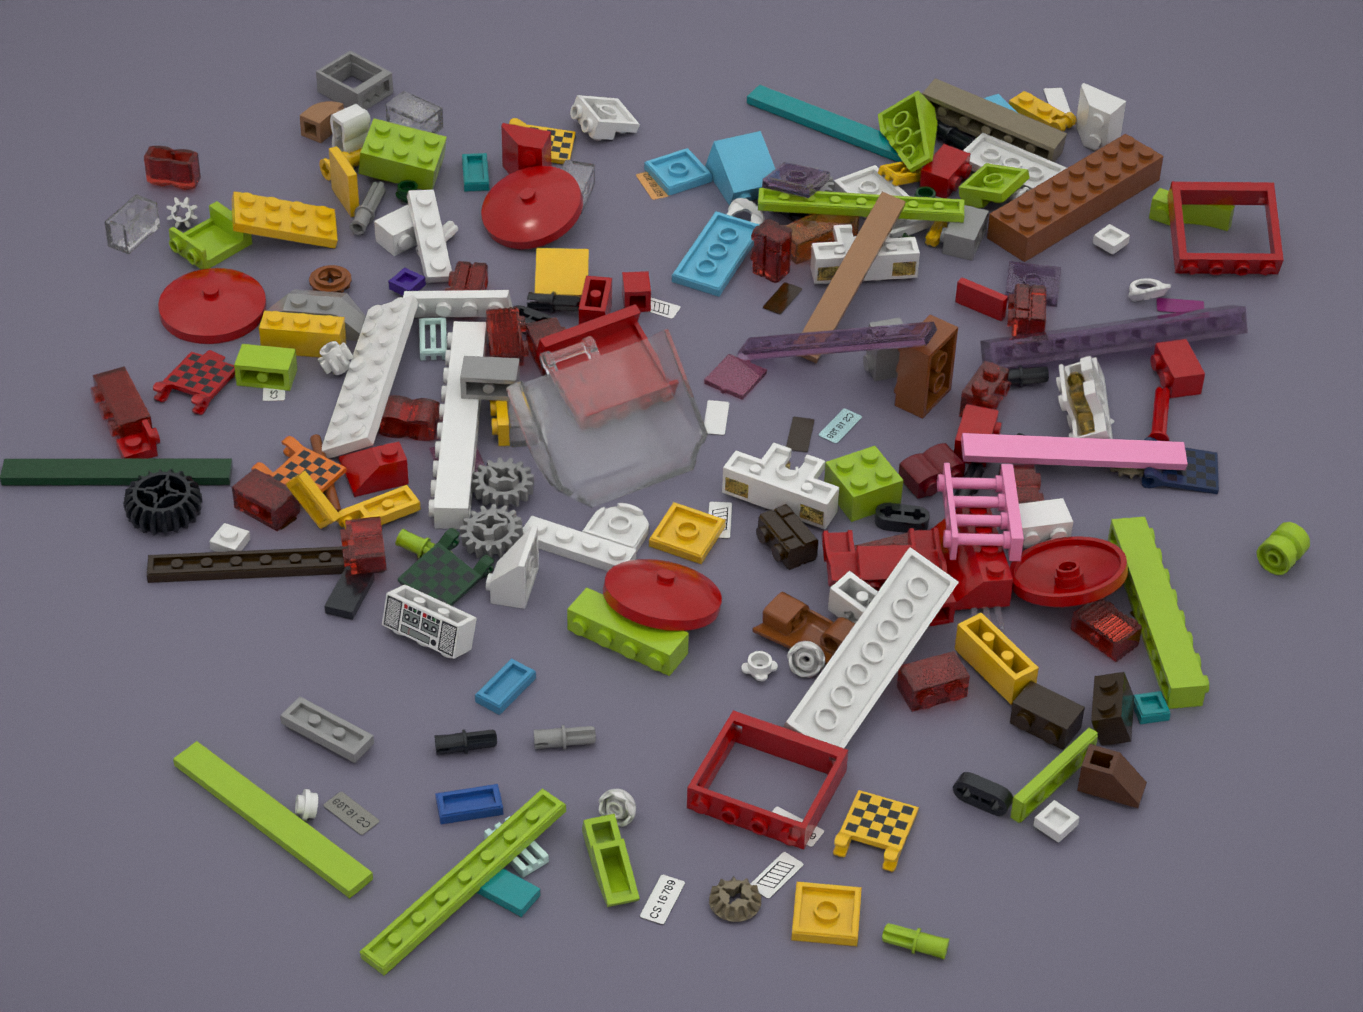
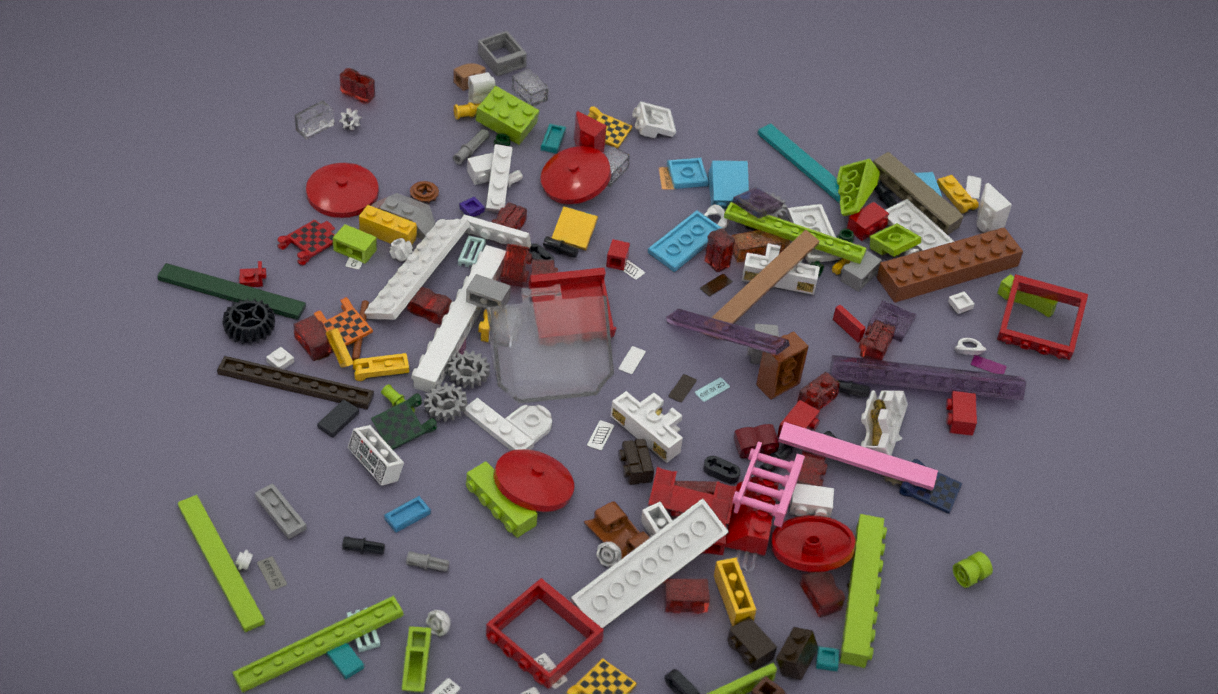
camera: 15 degrees right, 5 degrees up
(119, 402) = (253, 244): clear red brick -> none
(210, 240) = (362, 142): lime panel -> none
(284, 219) = (411, 142): yellow plate -> none
(343, 180) = (460, 123): yellow tile -> none
(364, 545) = (358, 389): clear red brick -> none
(375, 469) = (392, 335): red slope -> none
(469, 804) = (347, 590): blue tile -> none
(515, 572) = (447, 436): white slope -> none
(595, 298) = (585, 255): red brick -> none
(687, 533) = (574, 439): yellow tile -> none
(735, 376) = (658, 334): clear pink piece -> none
(759, 665) = (577, 544): white plate -> none
(863, 482) = (704, 437): lime brick -> none
(899, 173) = (833, 214): yellow tile -> none
(1160, 414) = (934, 445): red axle -> none

